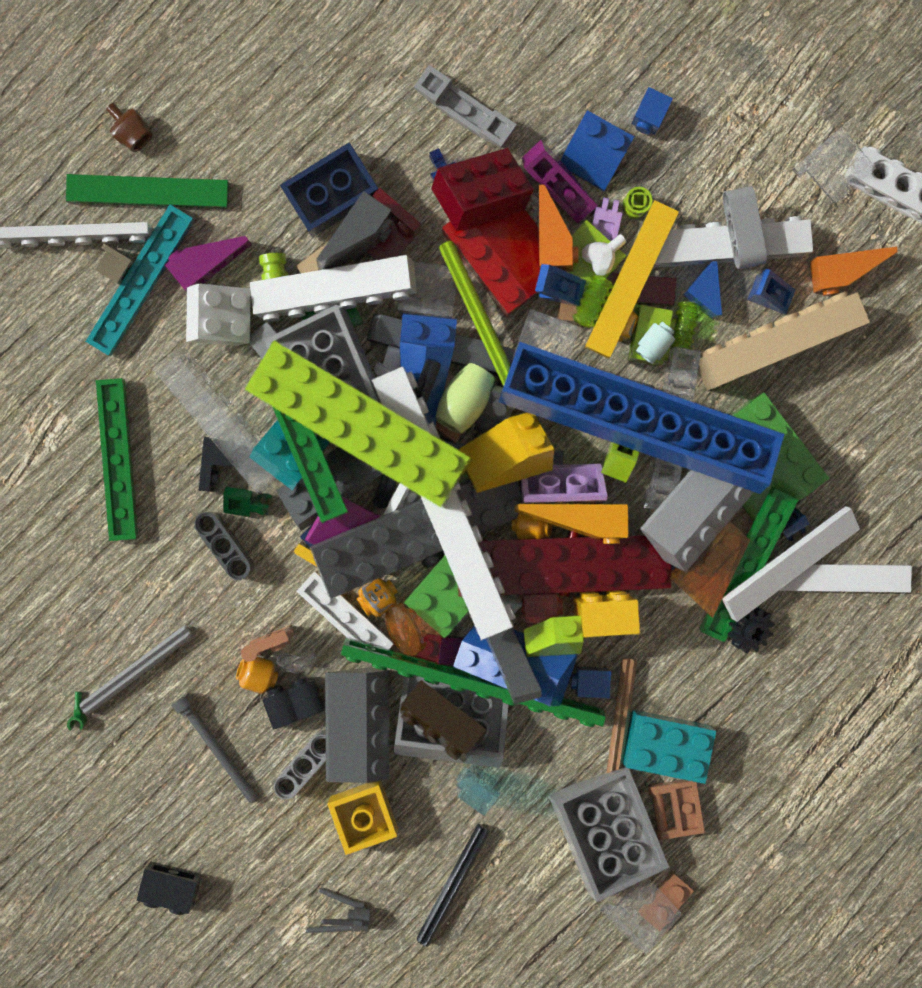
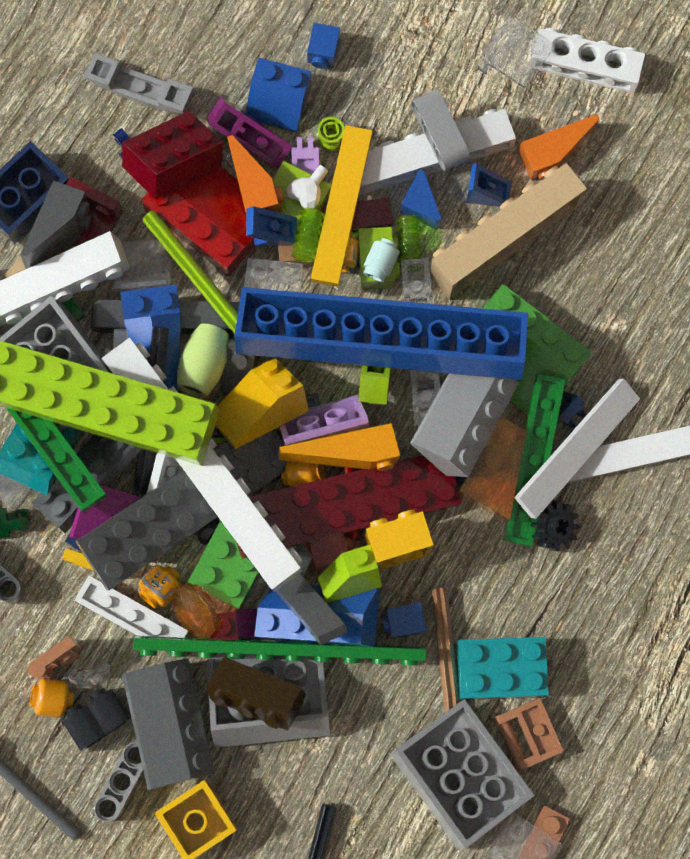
camera: 15 degrees left, 10 degrees down
(477, 788) = (309, 759): clear light blue brick -> none

